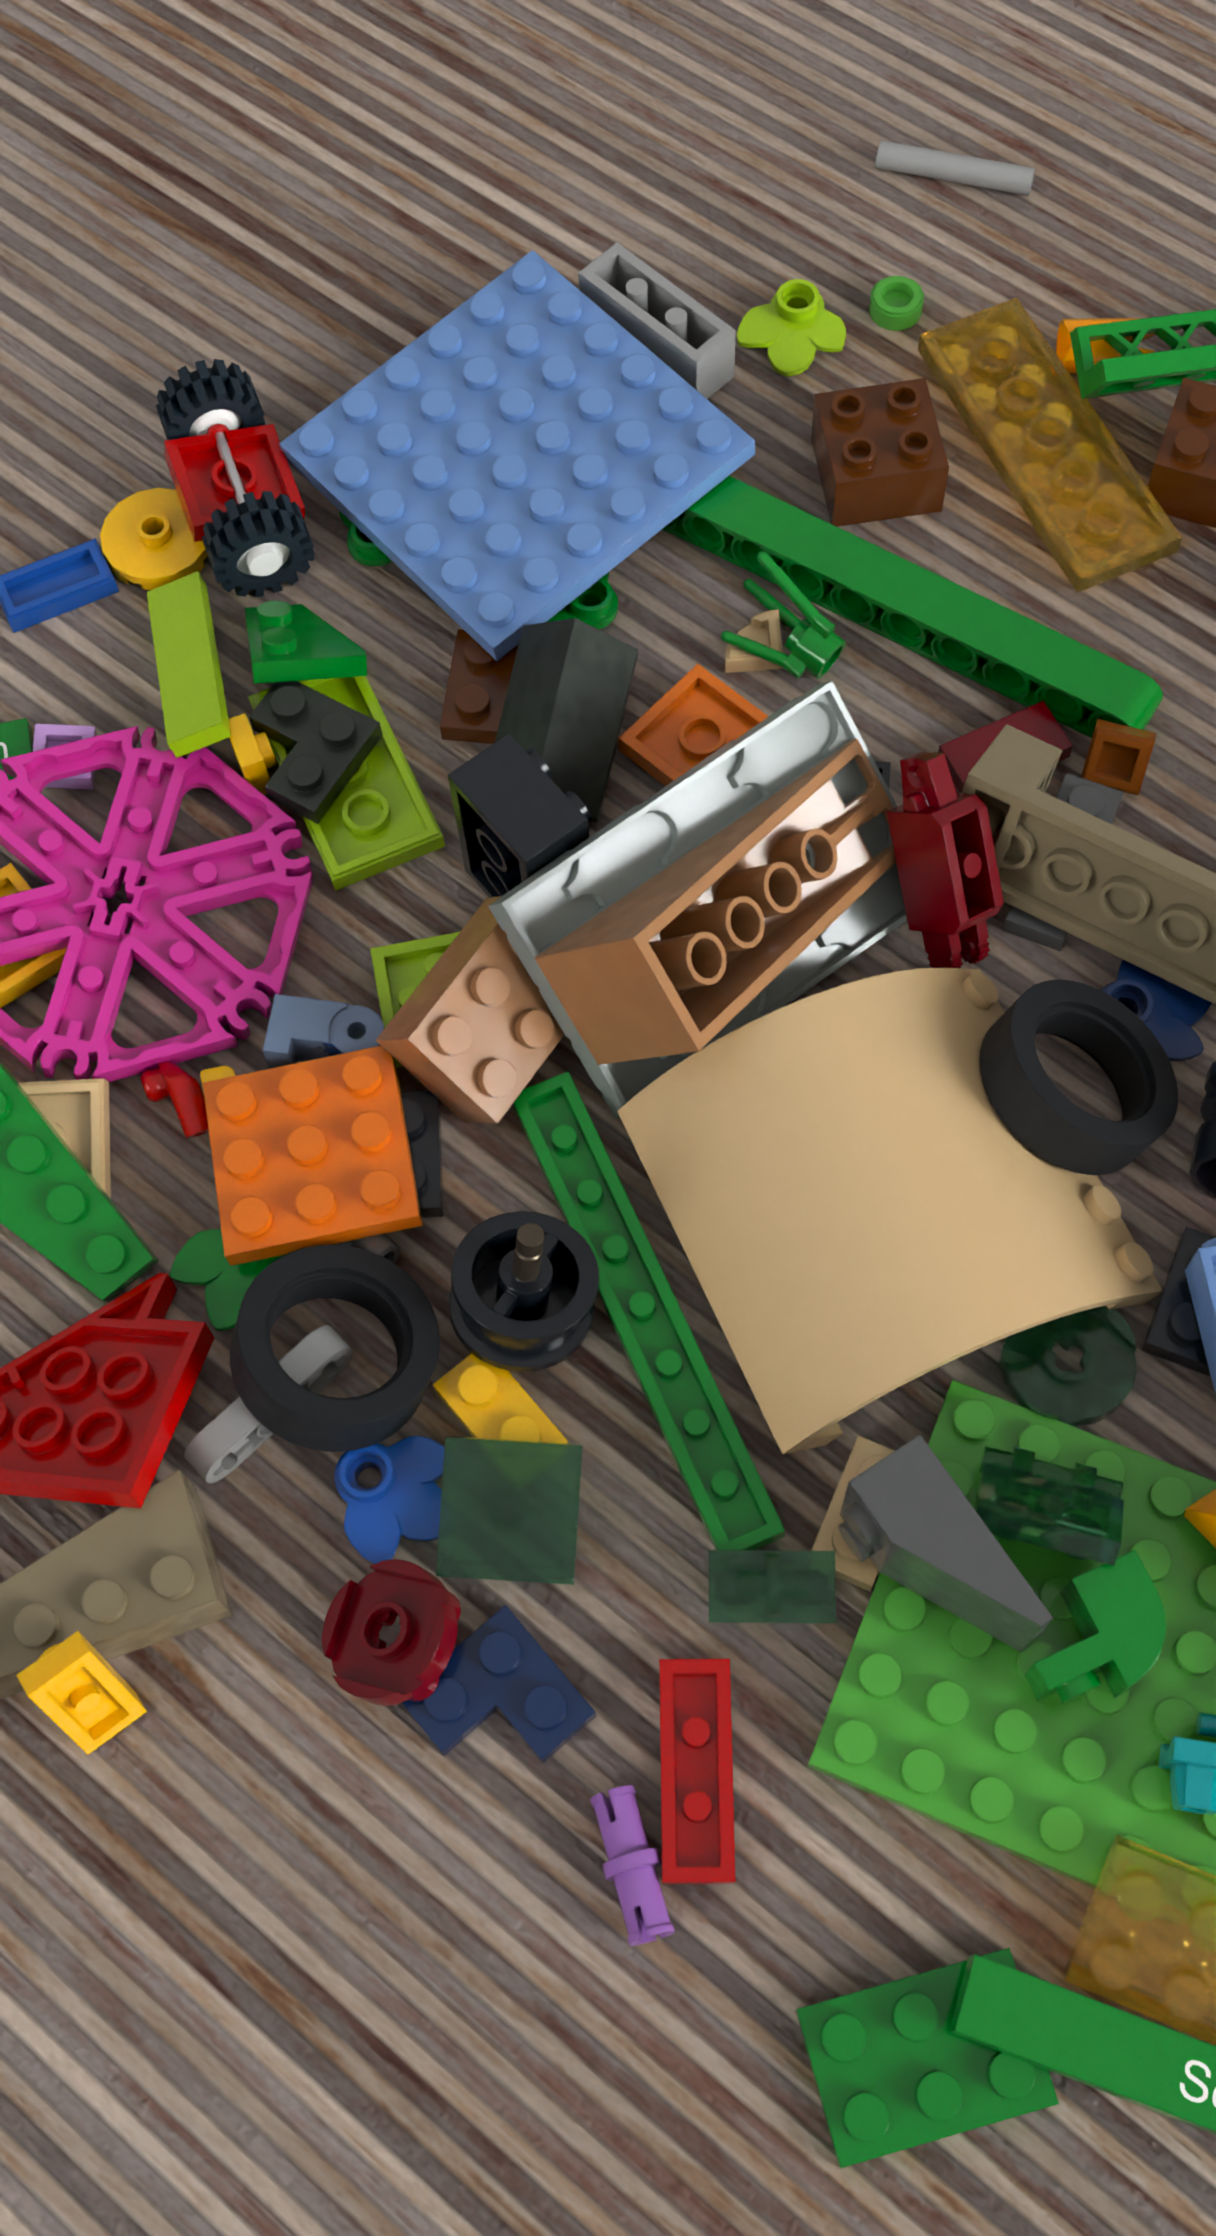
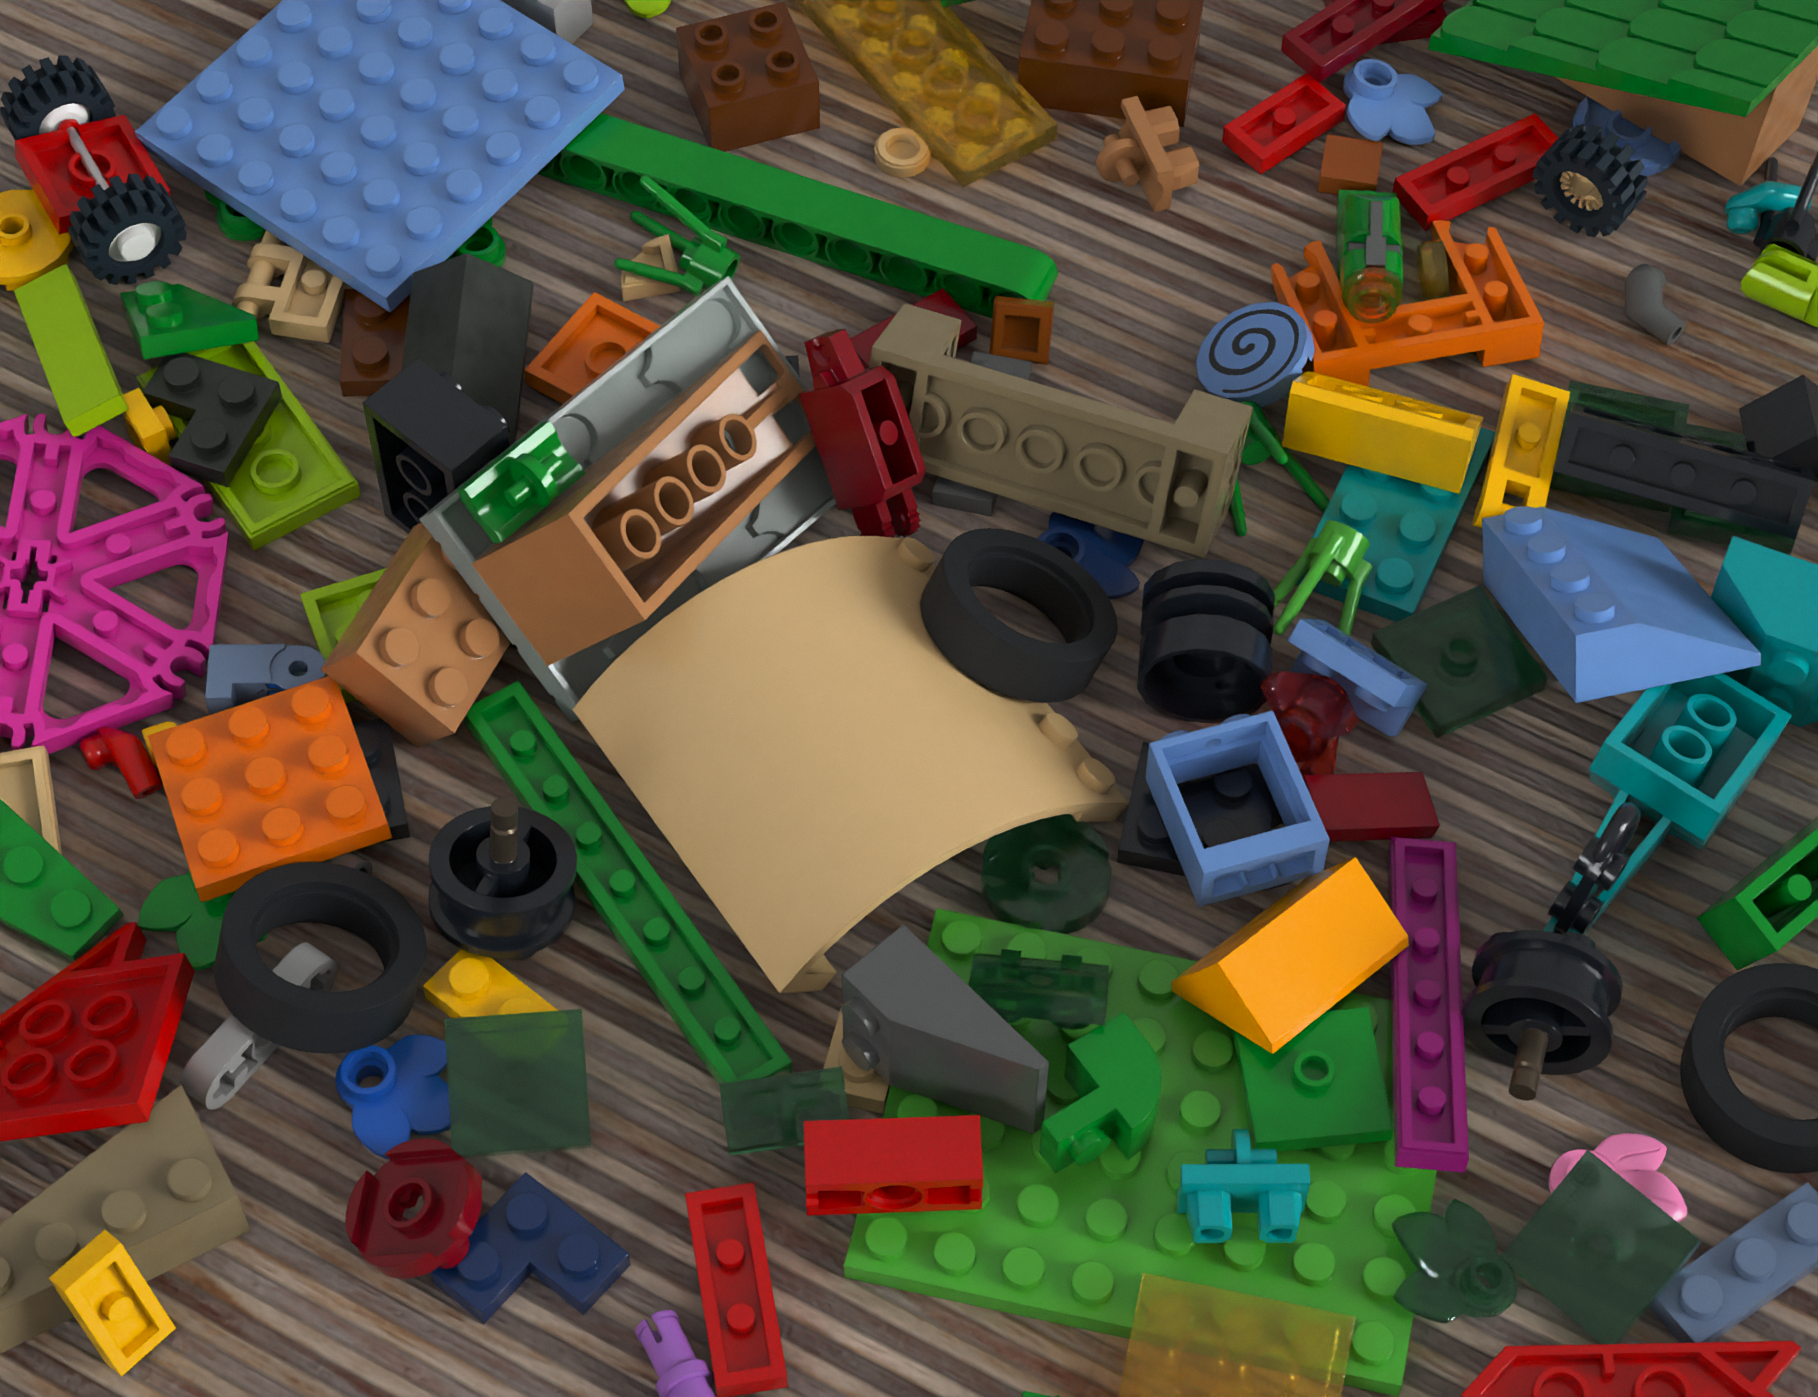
camera: 15 degrees left, 10 degrees down
(420, 635) = (304, 303): none -> tan plate
(593, 885) = (520, 482): none -> green hips
(874, 1674) = (893, 1165): none -> red piece
(1019, 548) = (901, 153): none -> tan tile

